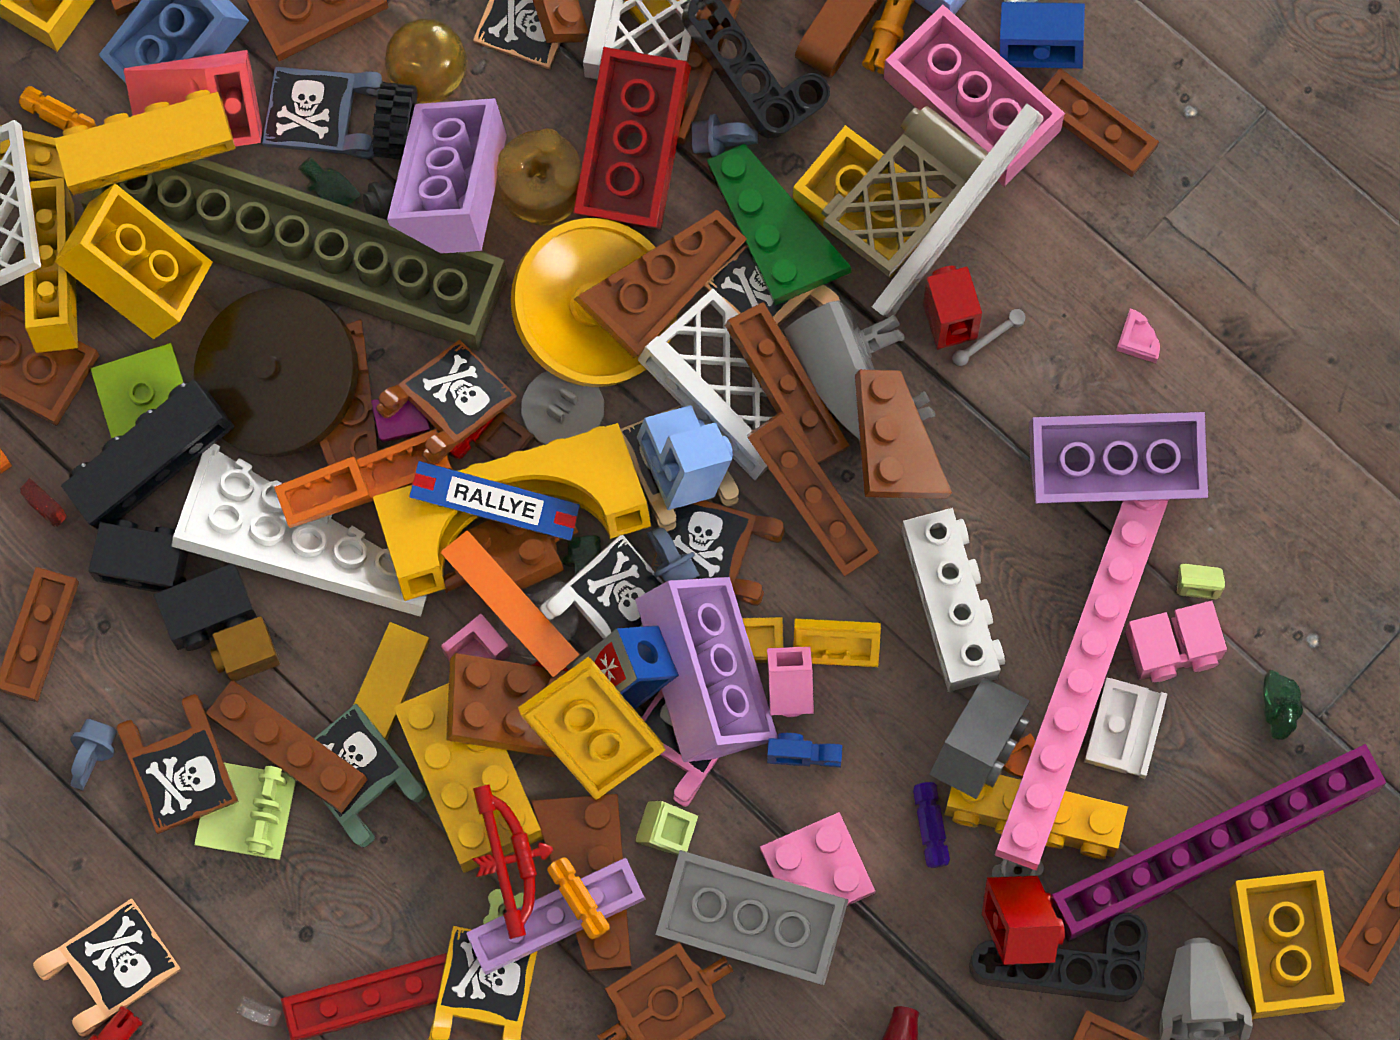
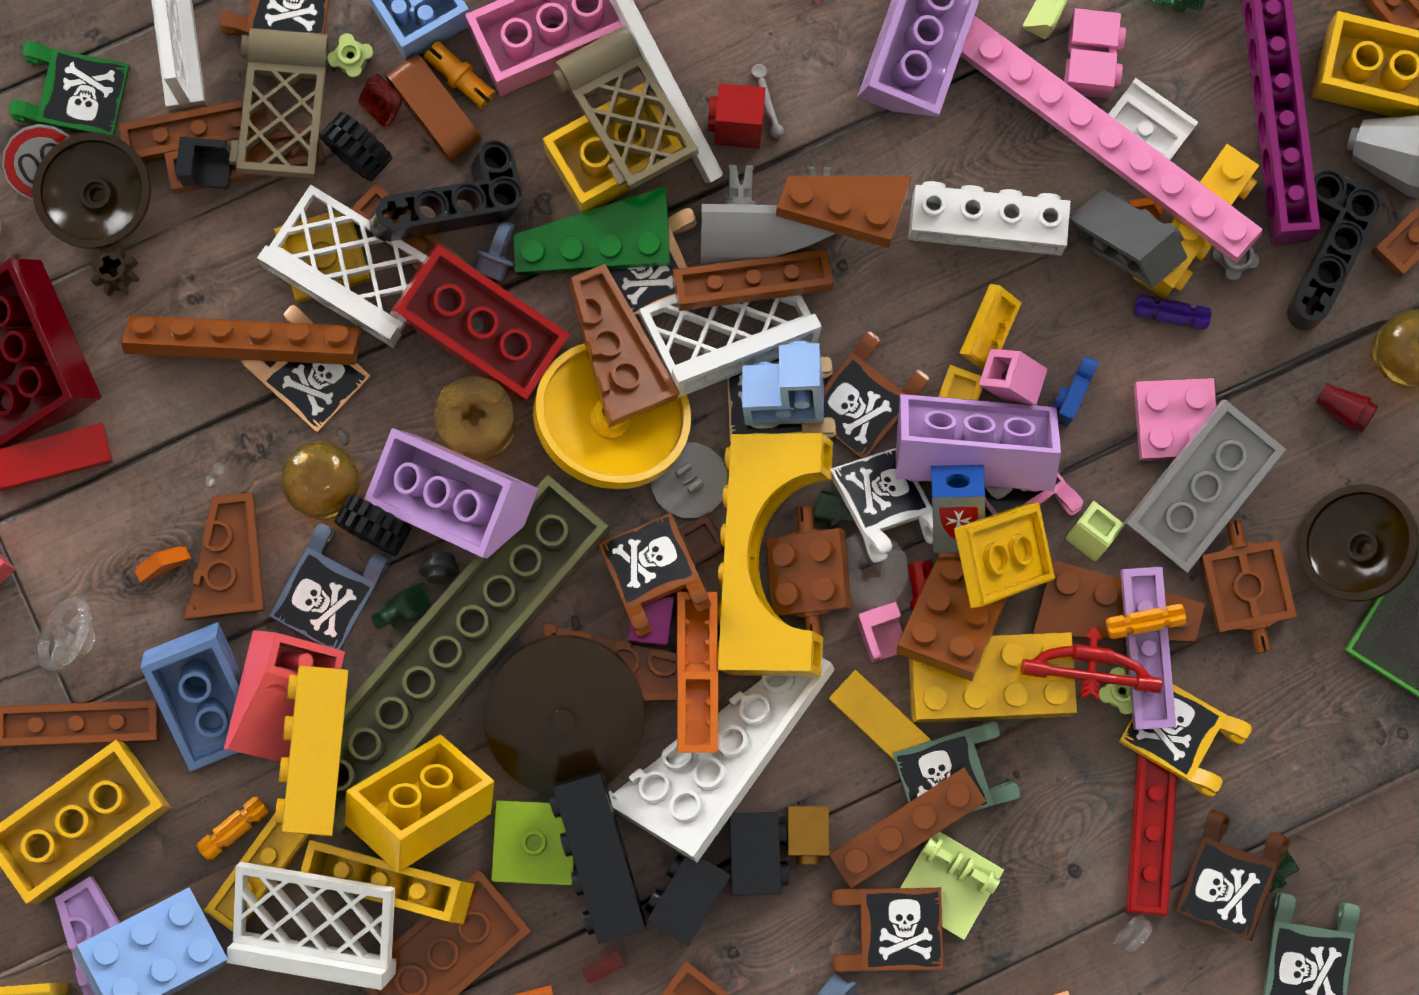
camera: 75 degrees left, 5 degrees up
(494, 500) = (764, 565): sticker -> none
(510, 603) = (863, 584): orange sticker -> none
(674, 565) = (872, 436): sand blue piece -> none
(813, 493) = (858, 294): dark orange plate -> none
(1022, 920) = (1291, 266): red brick -> none

